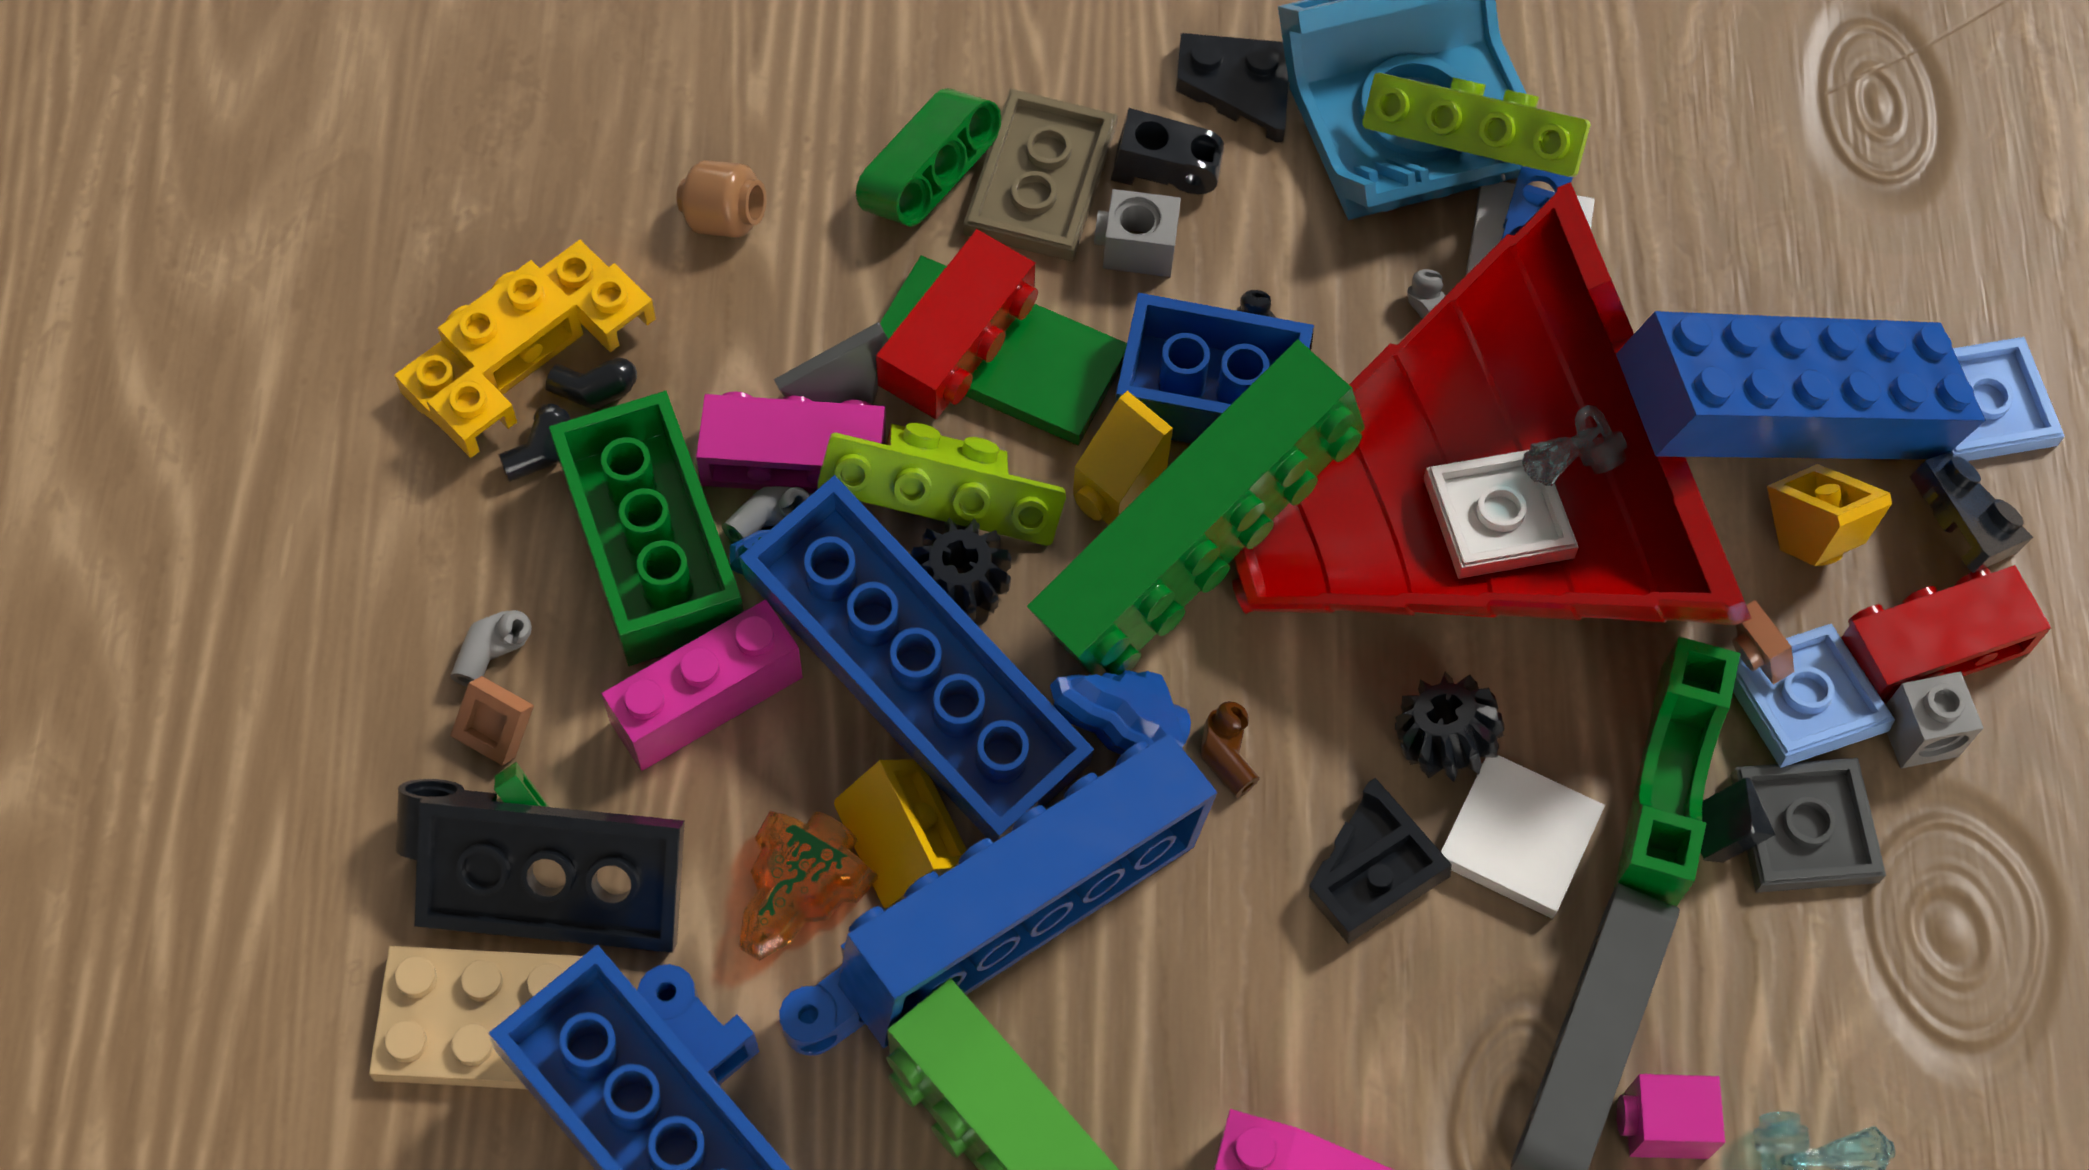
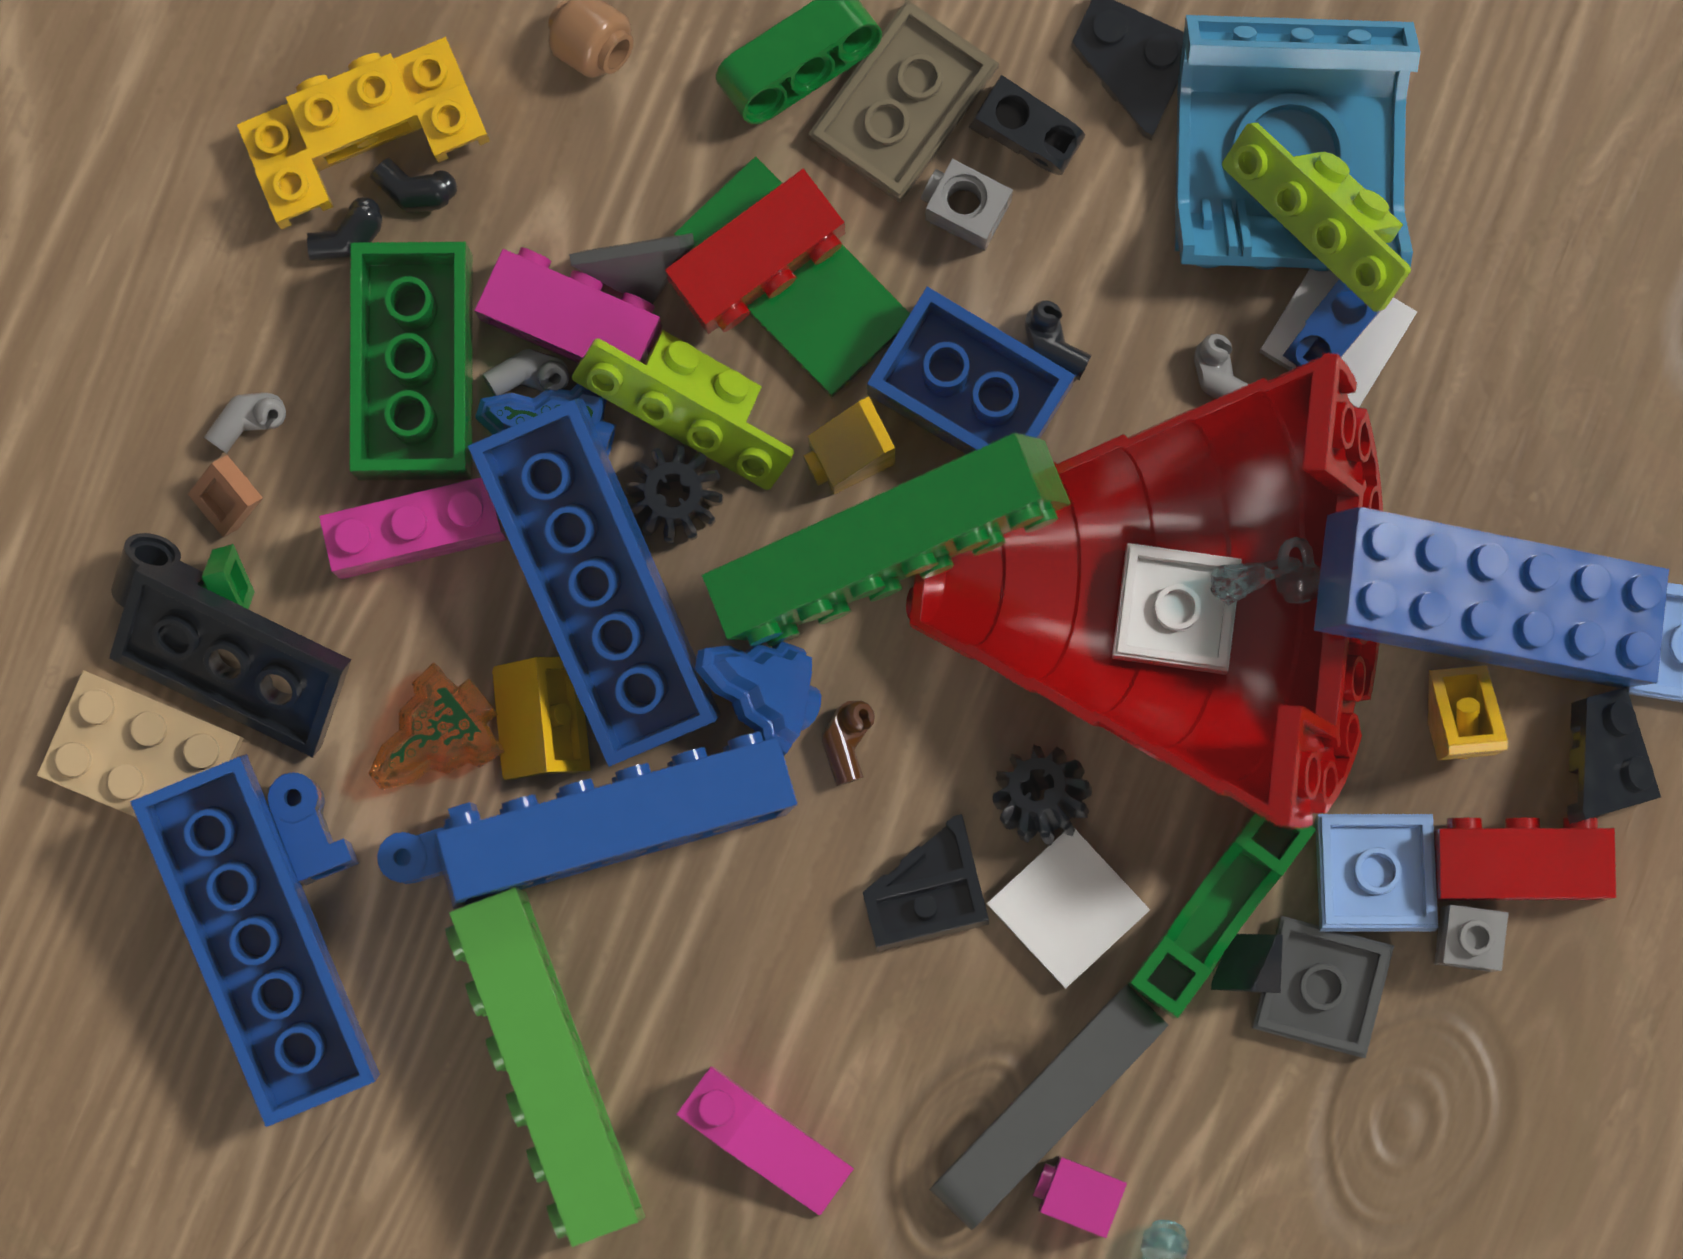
camera: 30 degrees right, 20 degrees up
(1763, 645) = (1347, 823): nougat plate -> none

